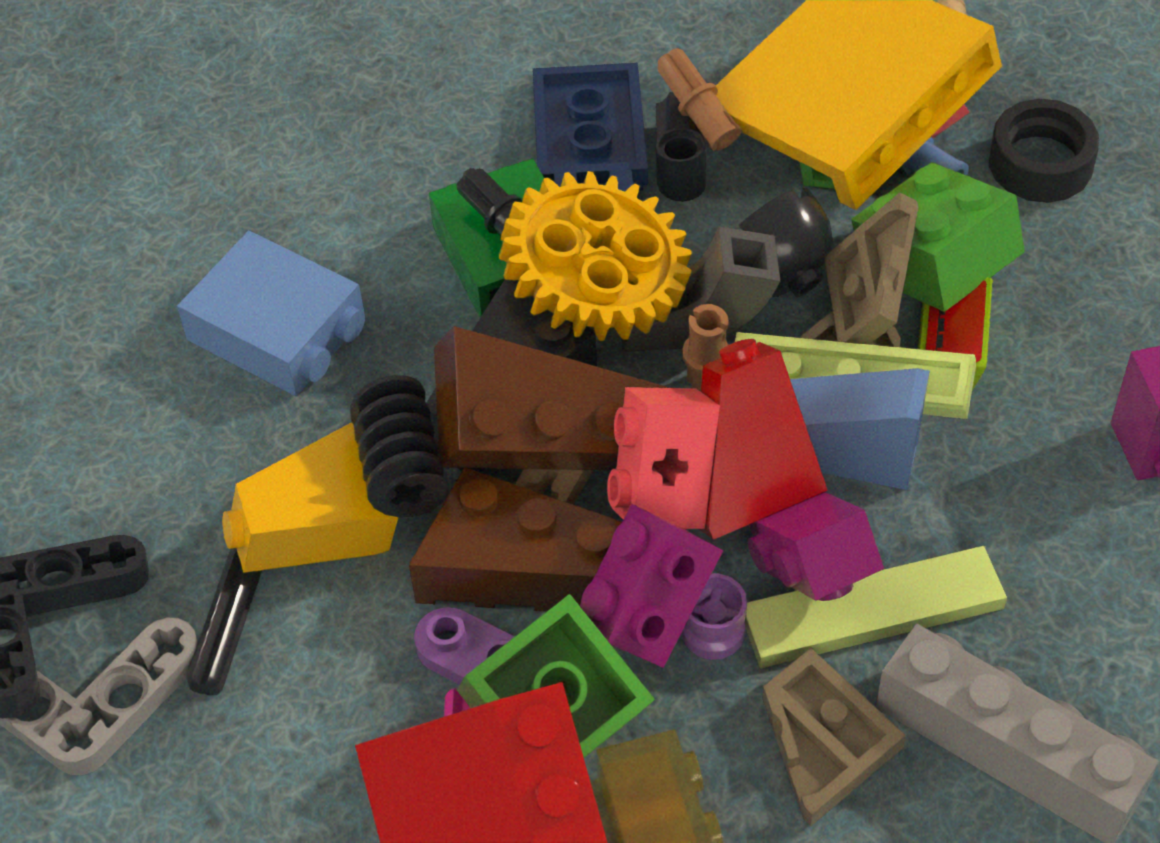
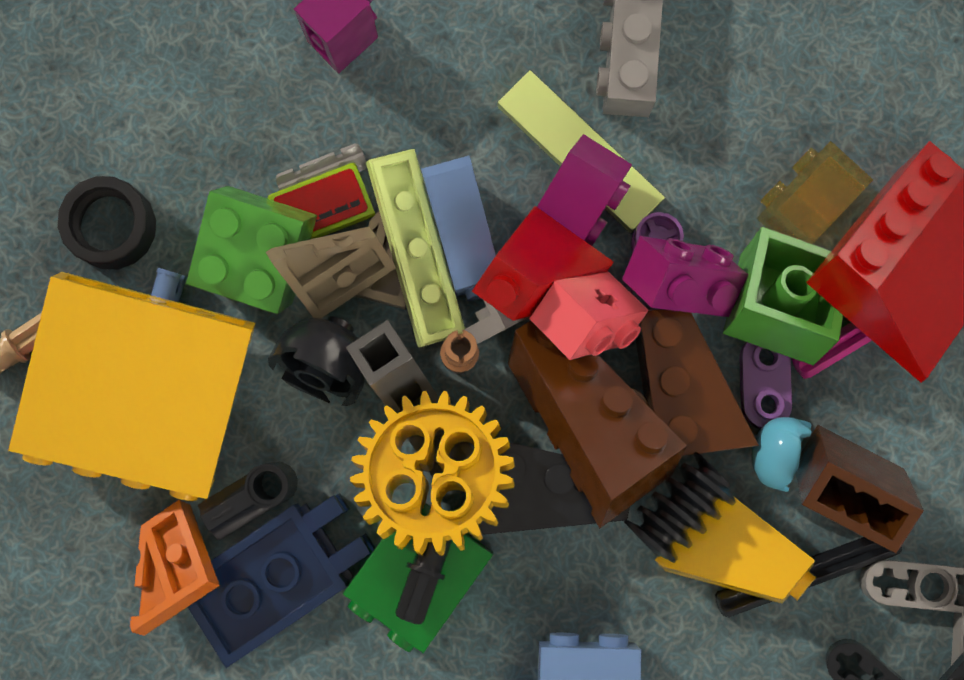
camera: 120 degrees left, 30 degrees up
(293, 629) = (857, 489): none -> reddish brown brick
(386, 604) = (779, 451): none -> medium azure hair
(636, 53) = (171, 567): none -> orange wing
(698, 100) = (217, 494): medium nougat axle -> none
(826, 733) = (694, 131): dark tan wing -> none
(997, 378) = (321, 165): none -> light grey axle

